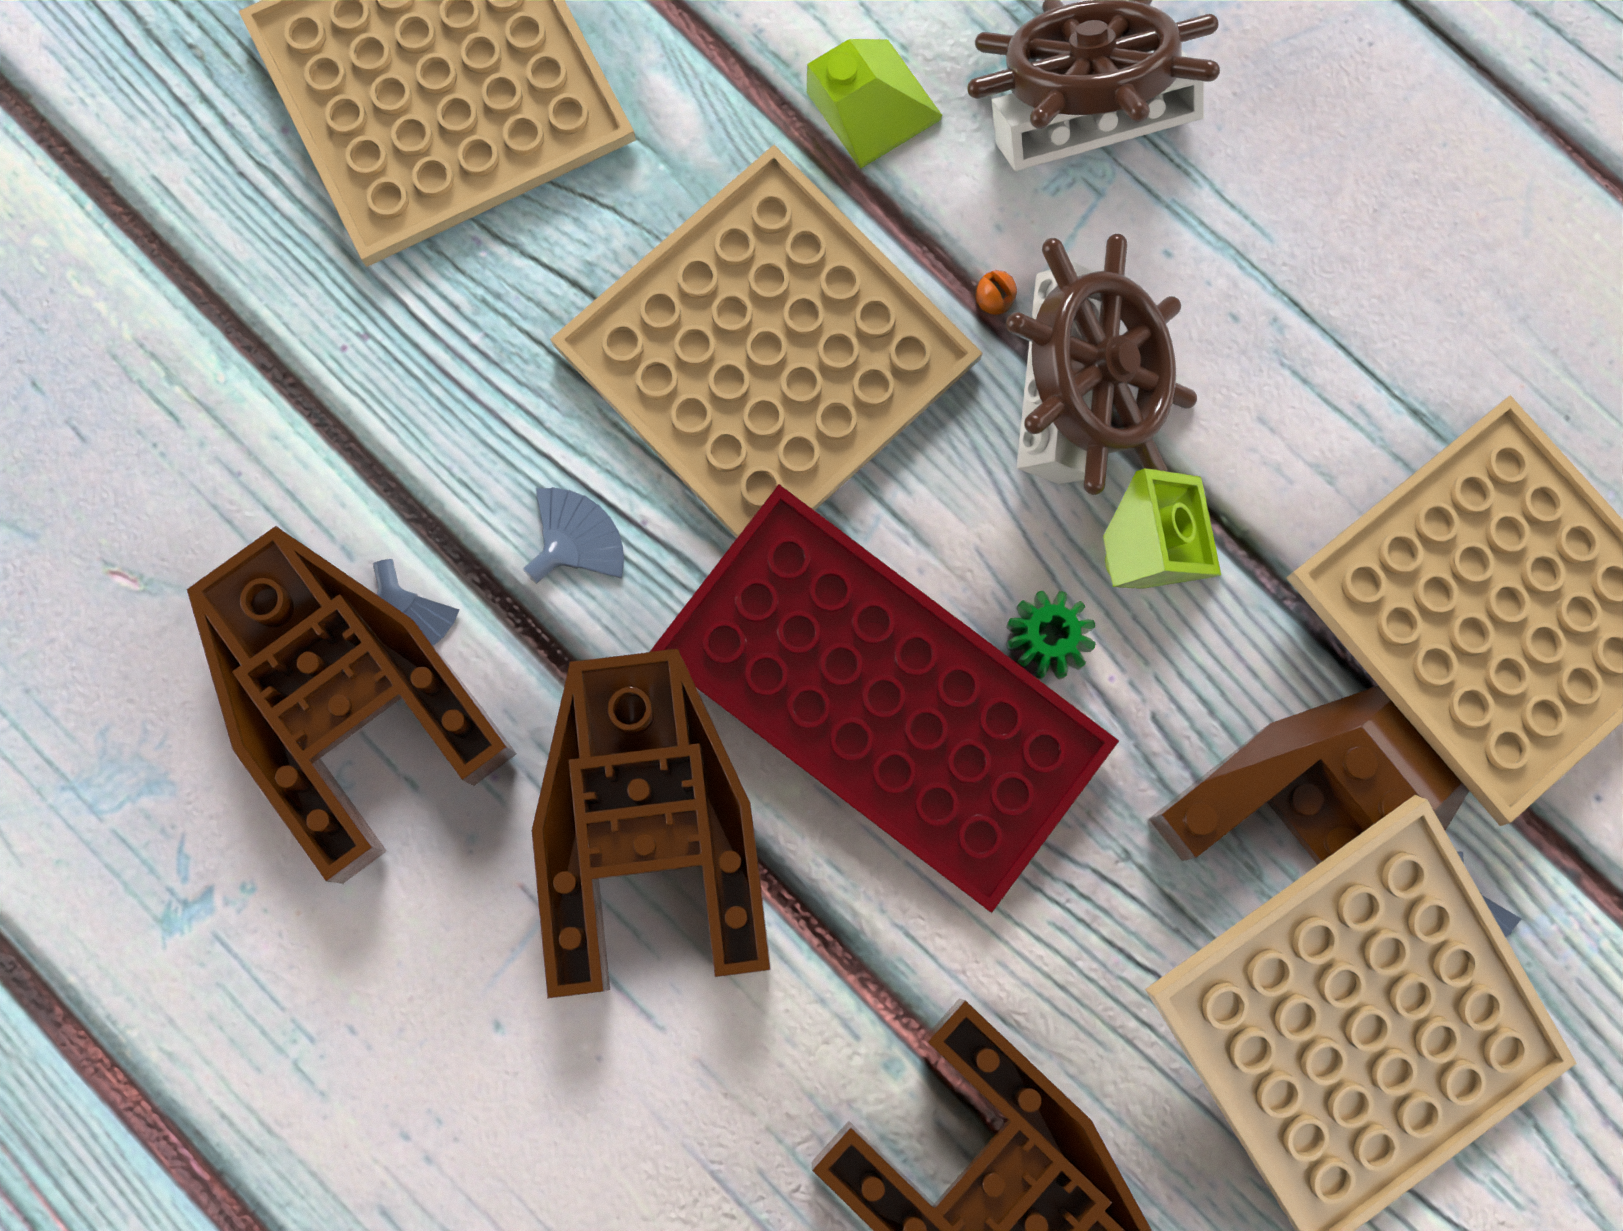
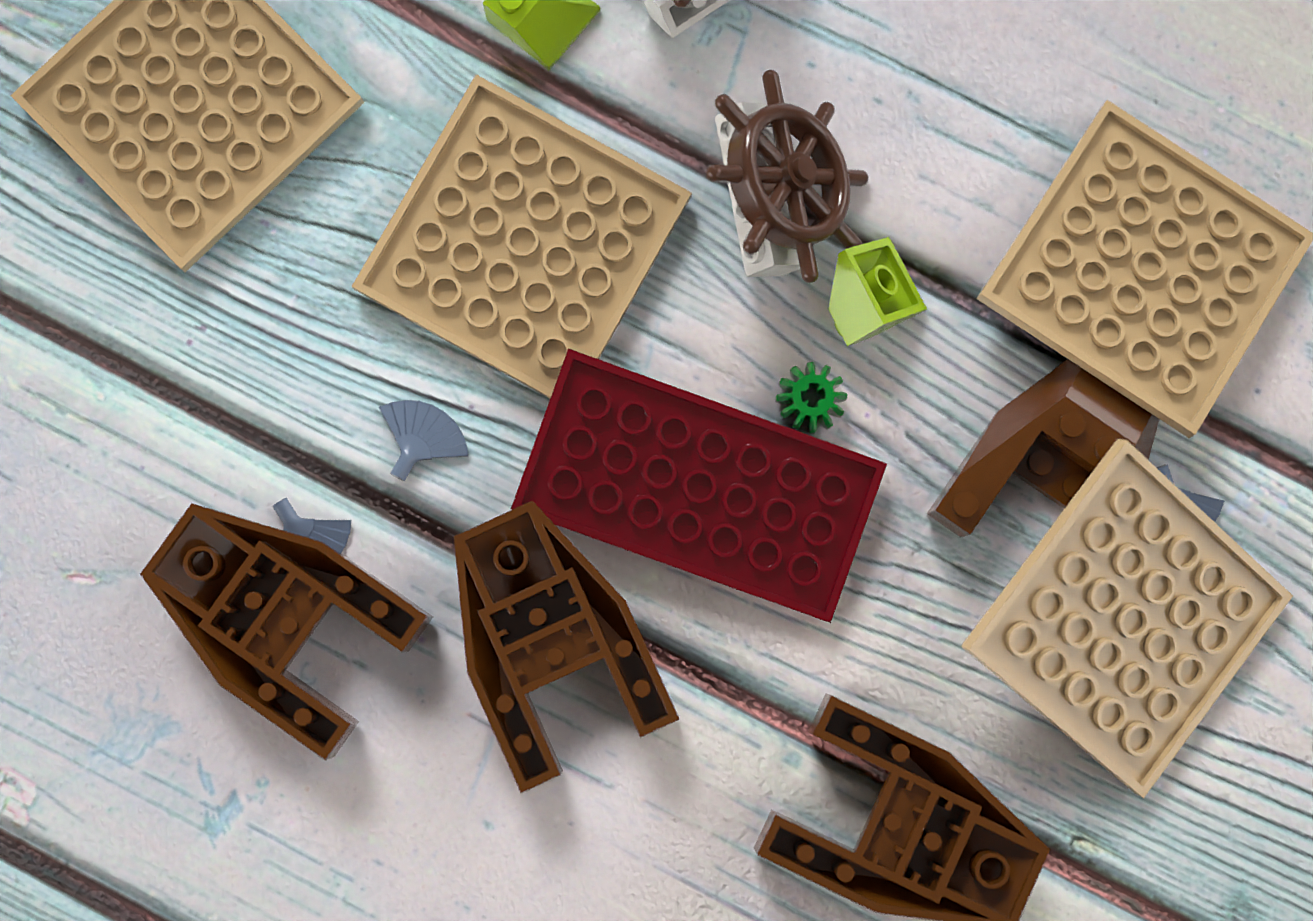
camera: 20 degrees left, 5 degrees up
(989, 297) = (683, 145): orange hinge -> none

